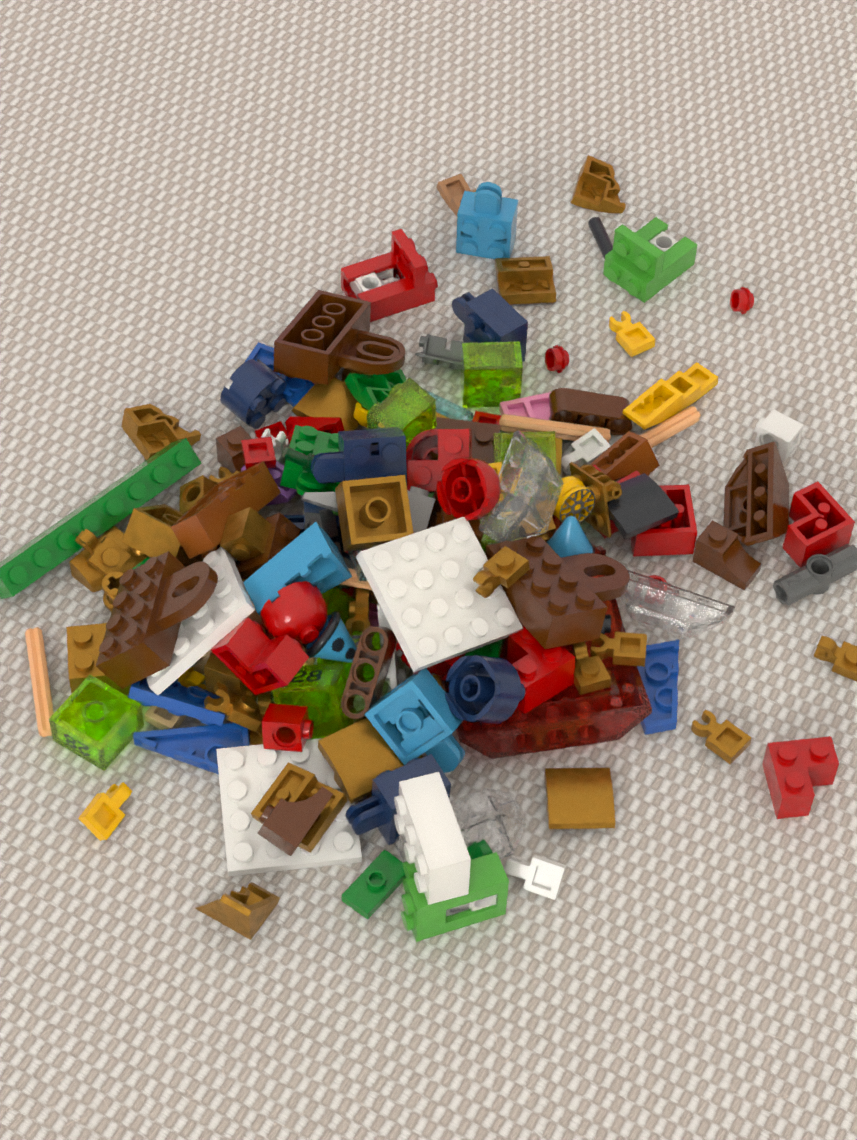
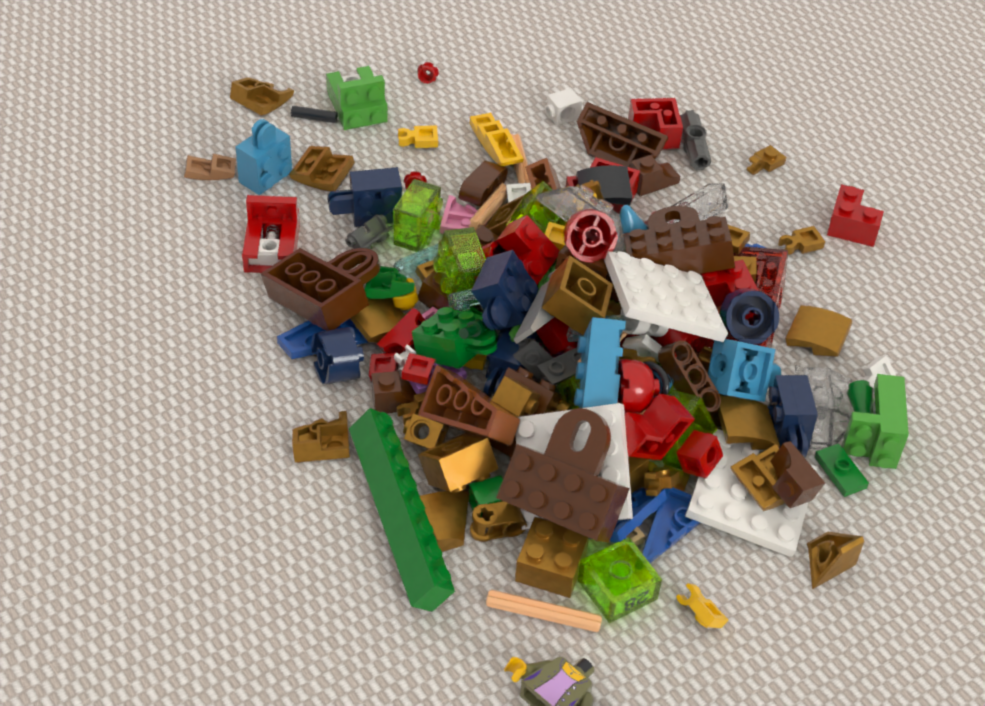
camera: 65 degrees left, 5 degrees down
(105, 555) = (450, 510): pearl gold plate -> none
(432, 838) = (872, 390): white brick -> none
(501, 569) = (669, 250): pearl gold plate -> none

